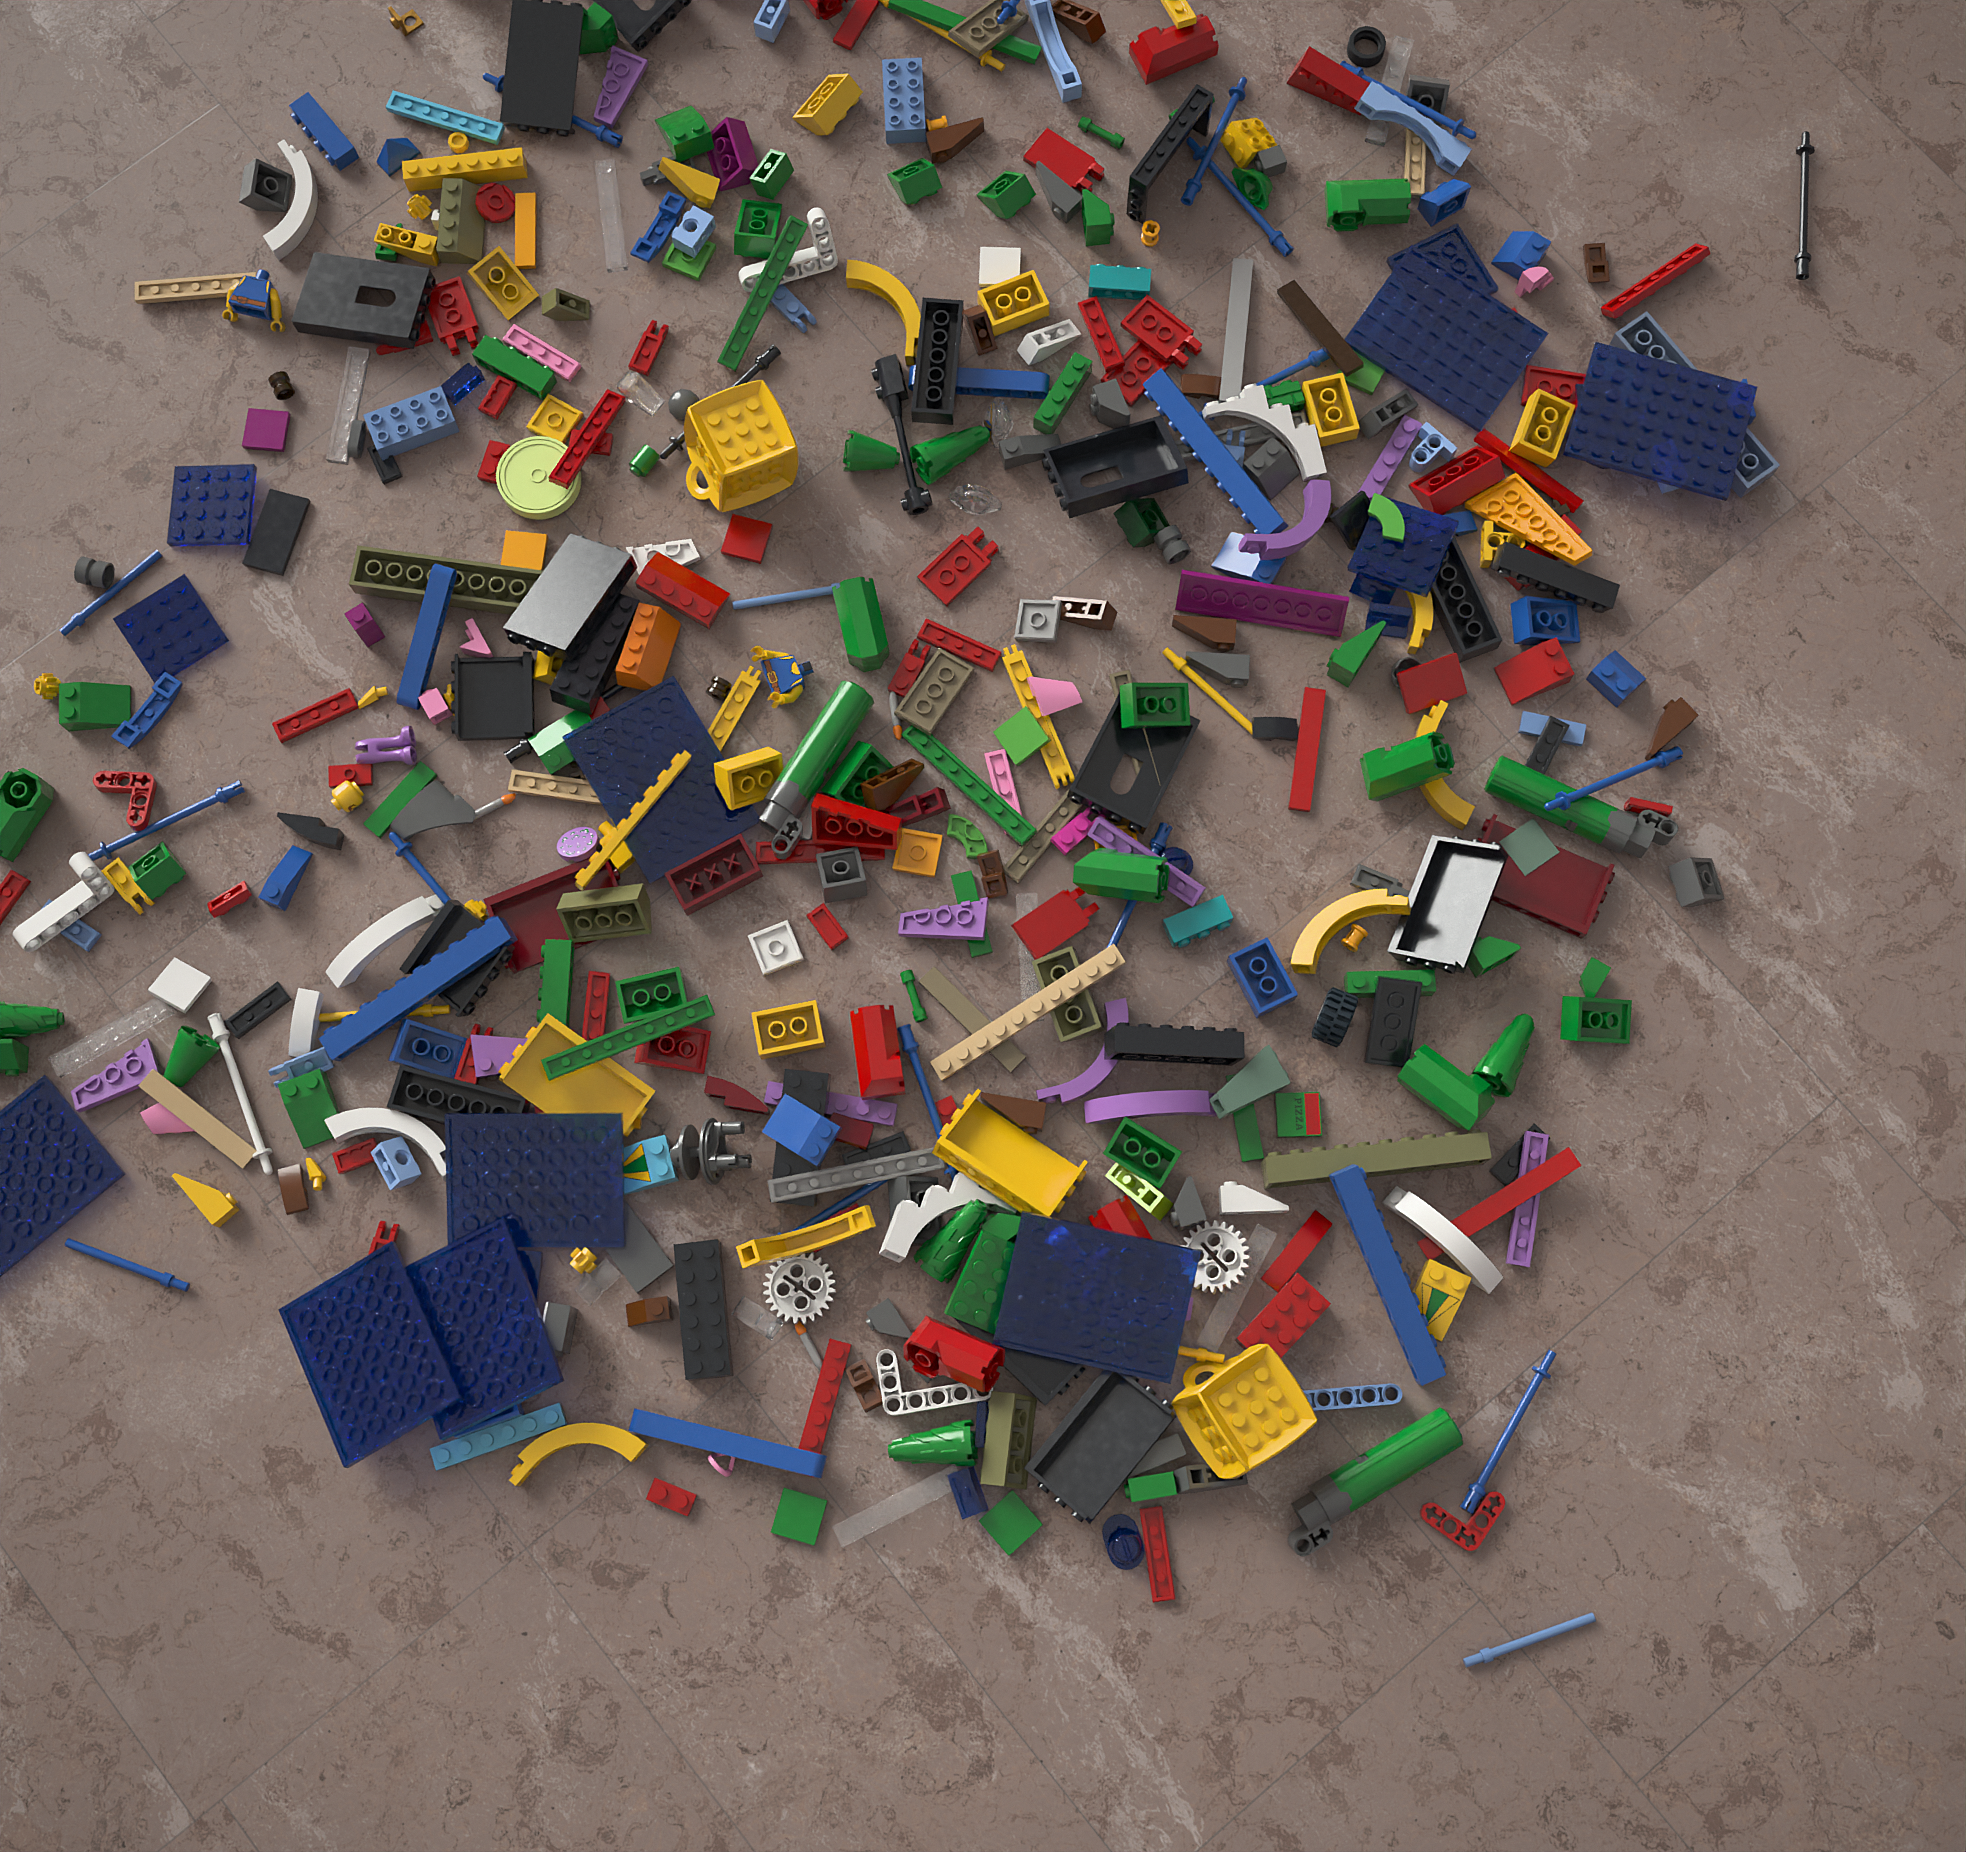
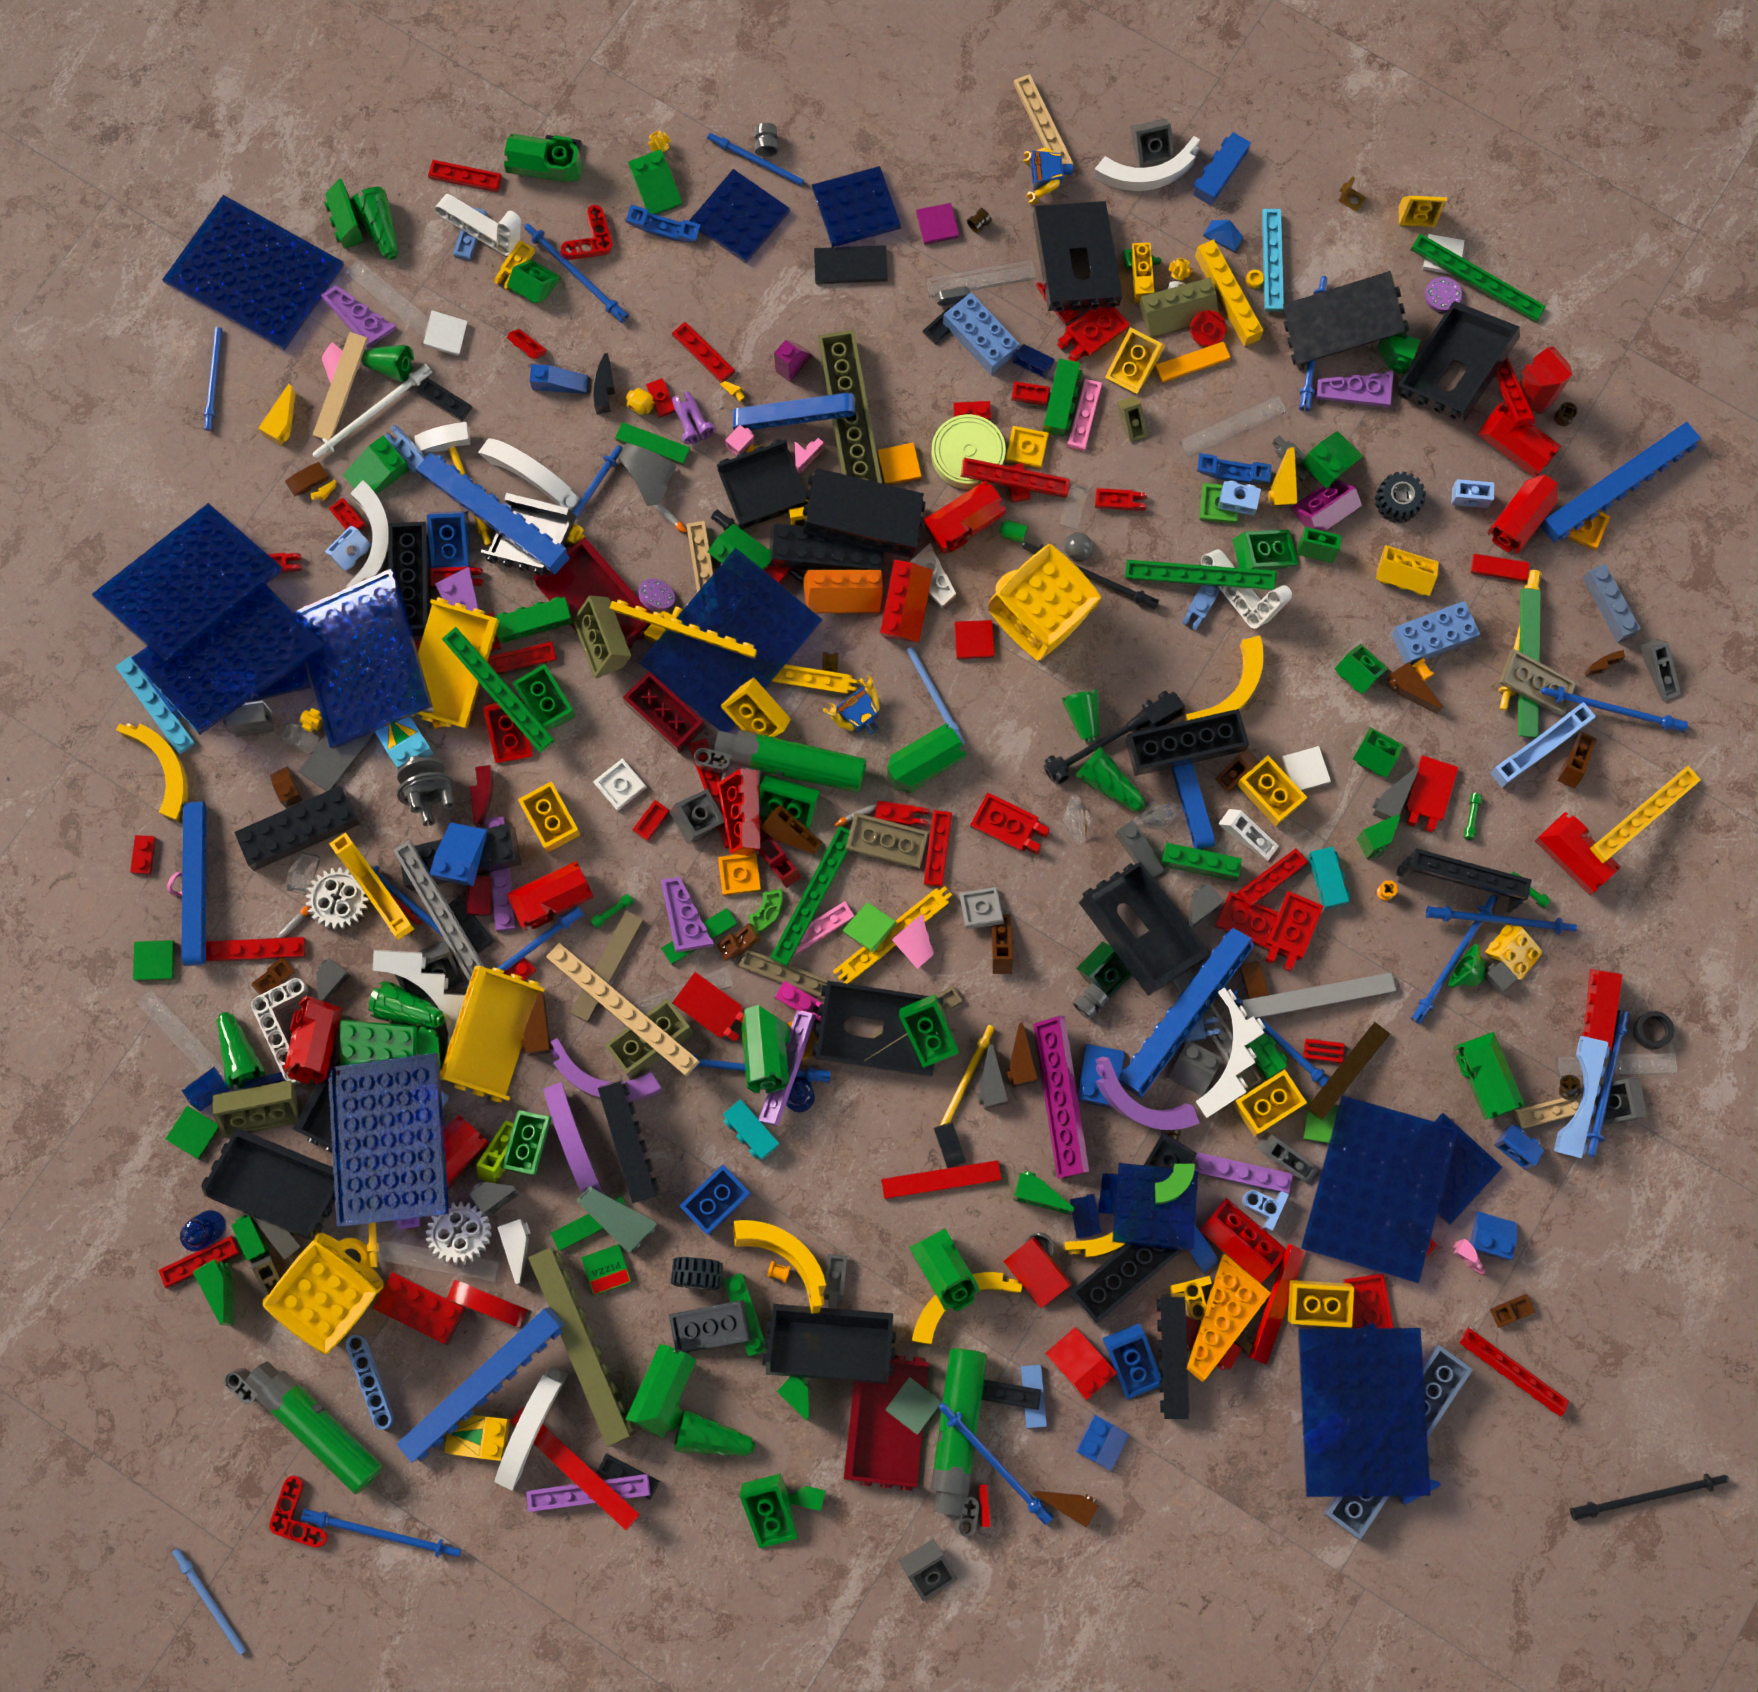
camera: 70 degrees right, 0 degrees up
(611, 500) = (964, 517): none -> red brick
(749, 83) = (1400, 497): none -> black wheel
(1193, 1536) = (218, 1289): none -> green slope
(1297, 332) = (1340, 1052): none -> red tile
(1398, 137) = (1569, 1087): none -> dark brown wheel

